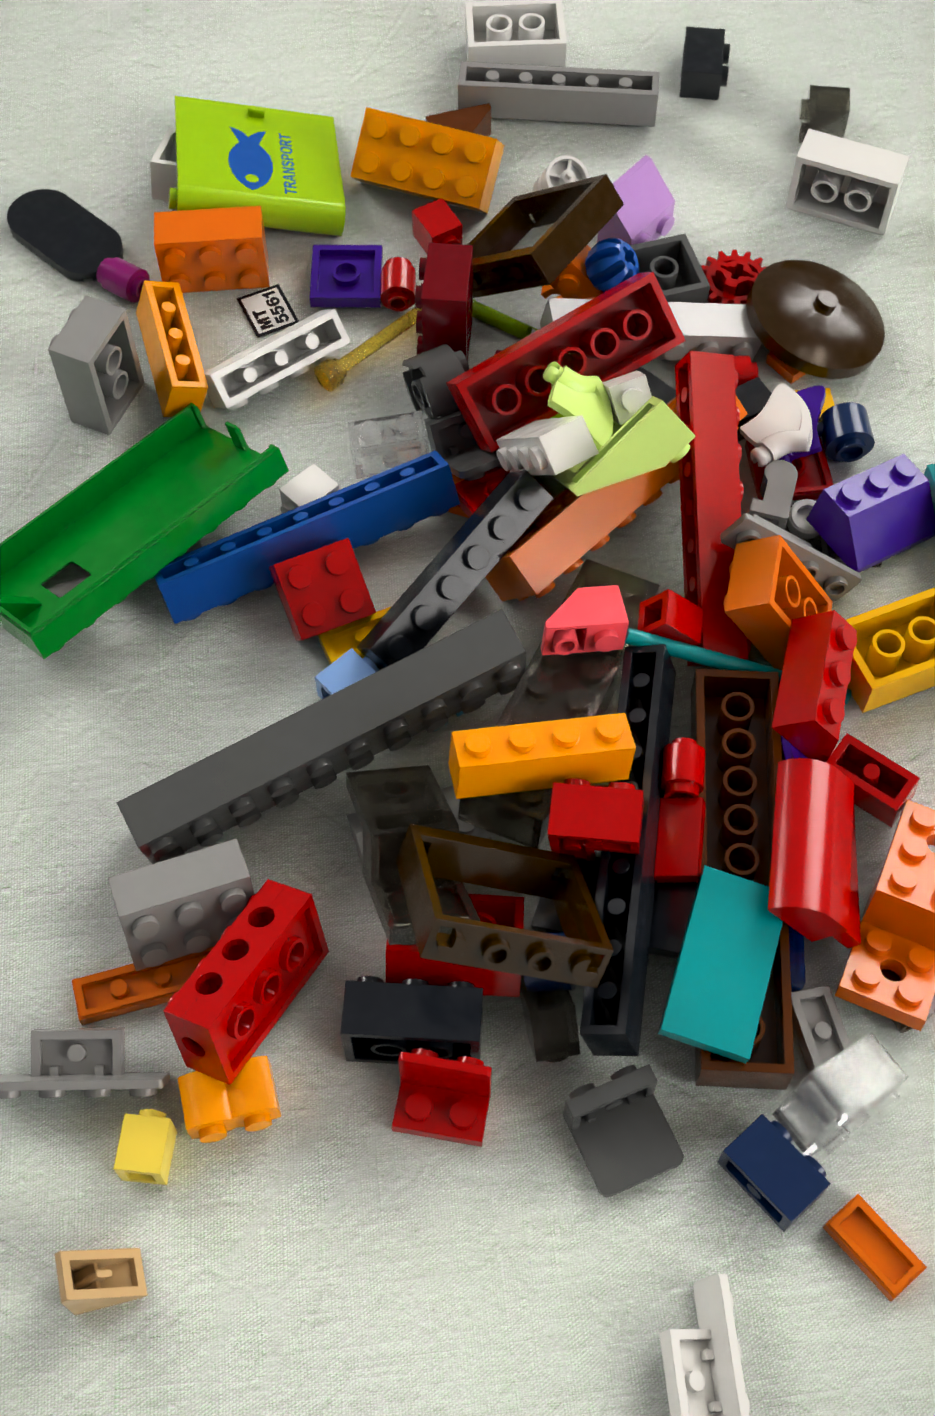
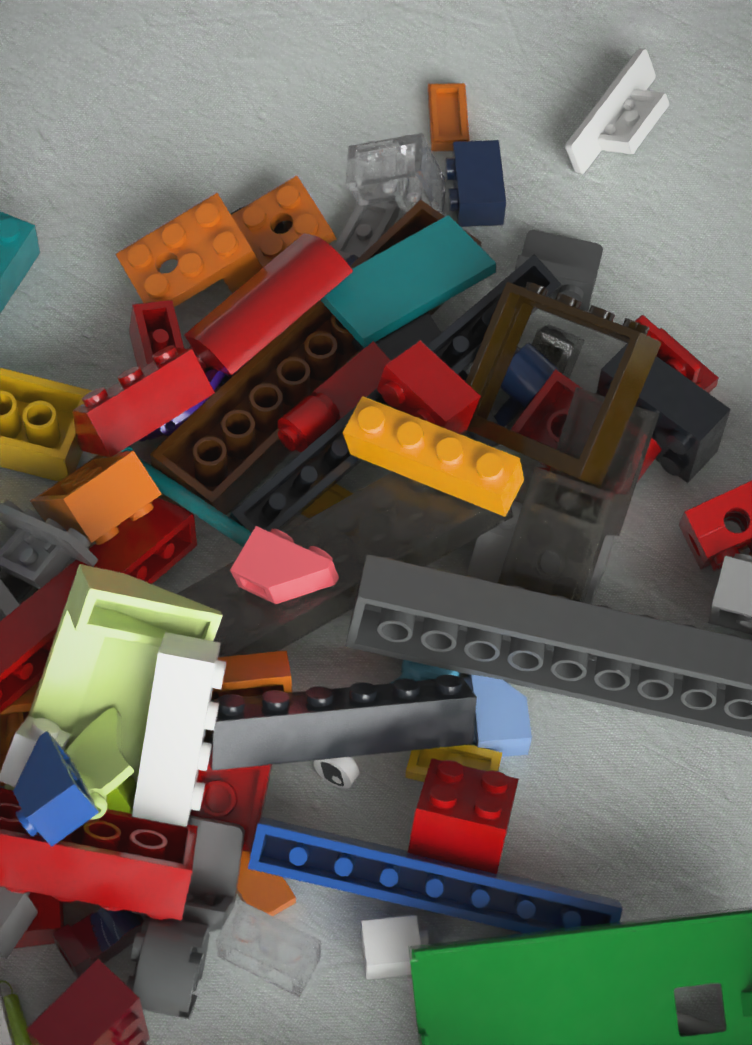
camera: 145 degrees left, 0 degrees up
(583, 349) = (52, 793): none -> blue slope
(671, 617) = (200, 543): red brick -> none

